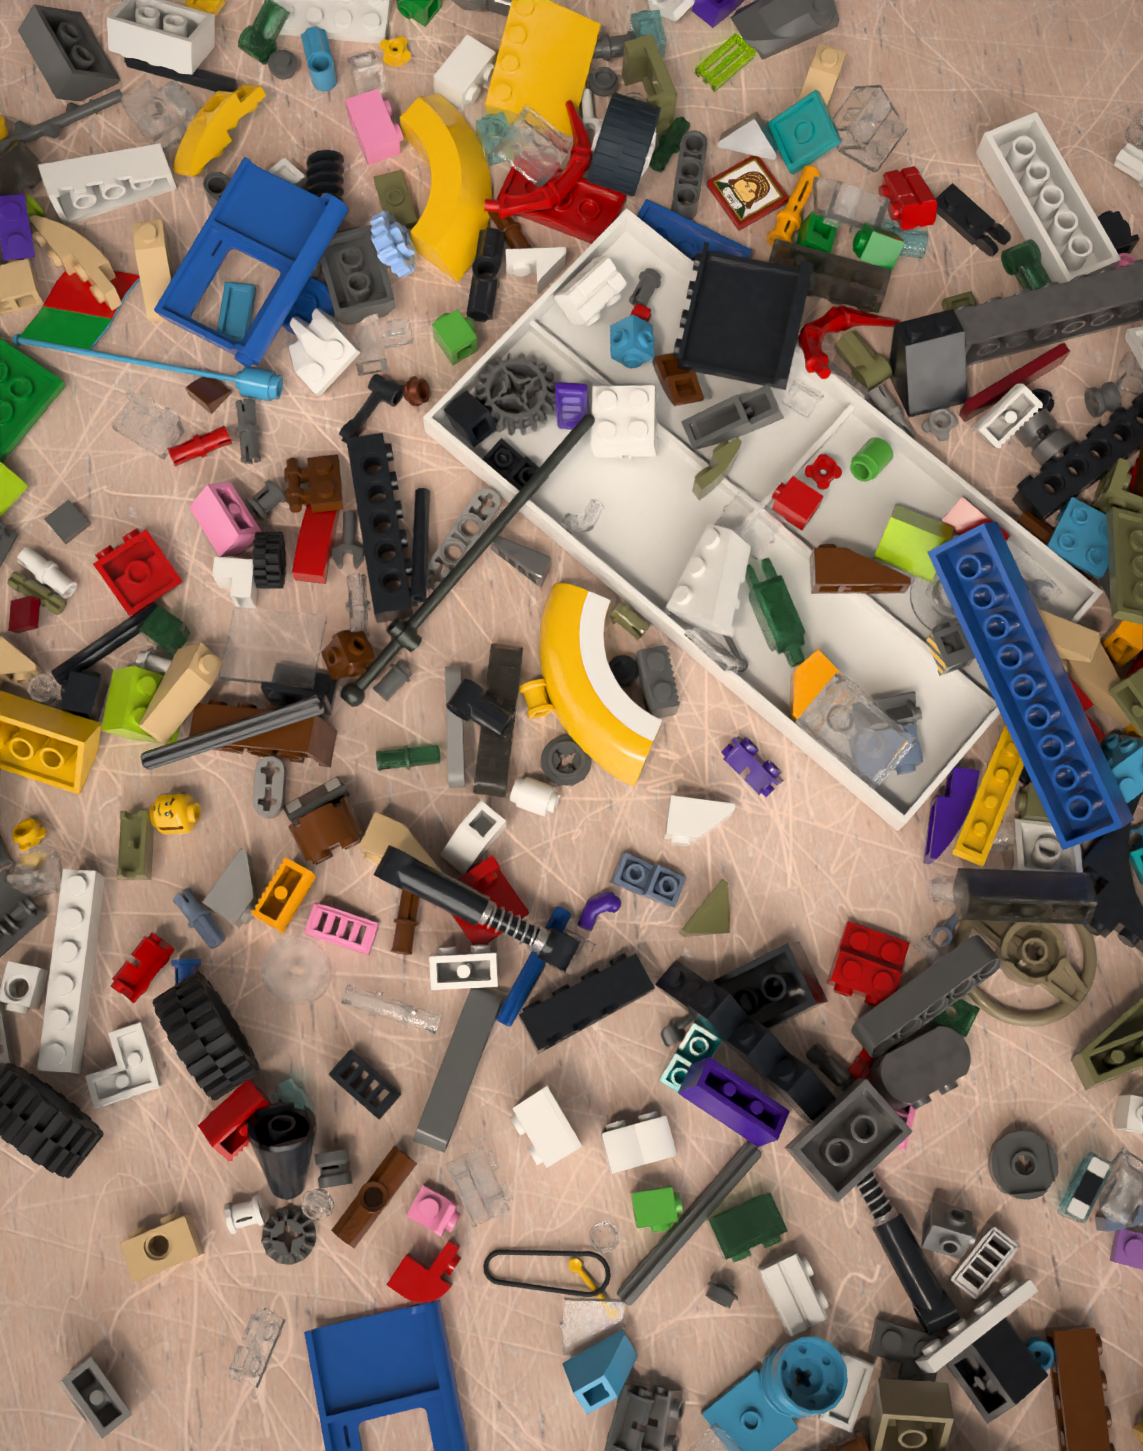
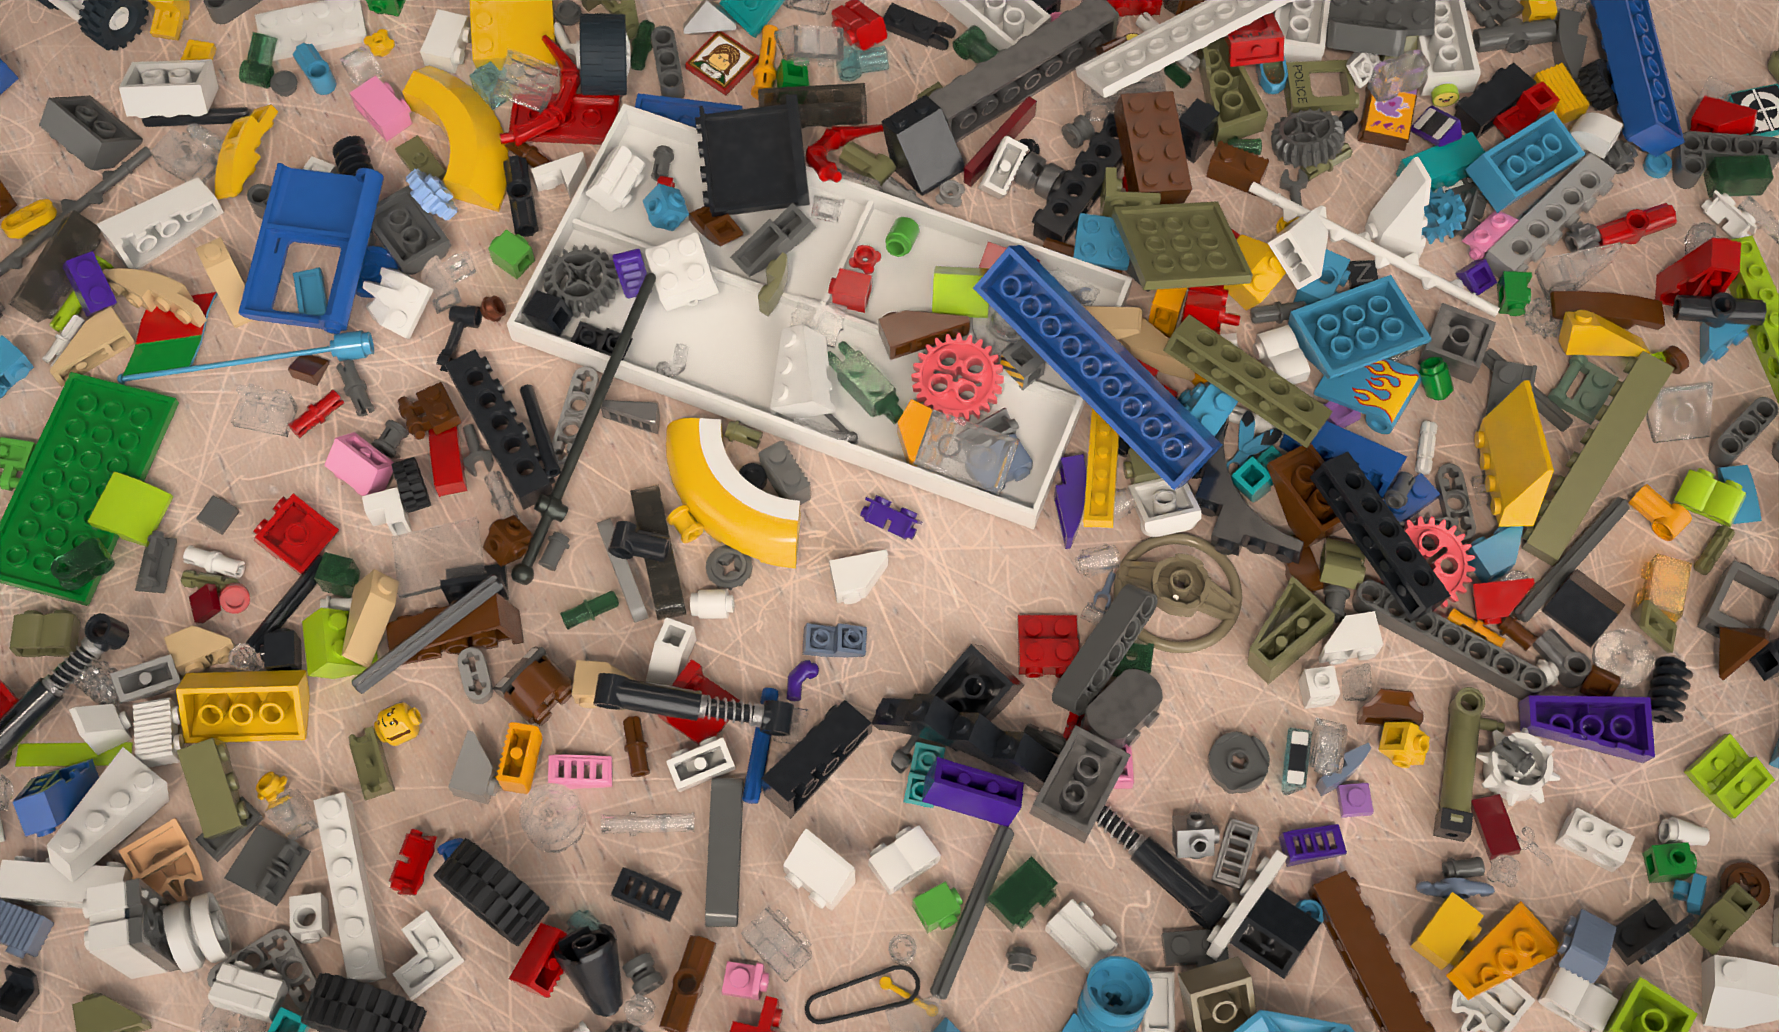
camera: 15 degrees left, 10 degrees down
(55, 619) = (234, 598): none -> tile
(199, 918) = (450, 805): sand blue axle -> none
(711, 916) = (899, 650): olive slope -> none
(877, 246) = (846, 67): brick -> none
(892, 617) = (965, 355): none -> coral gear
(1024, 896) = (1155, 538): clear smoke brick -> none
(1042, 1281) = (1288, 848): none -> dark purple slope

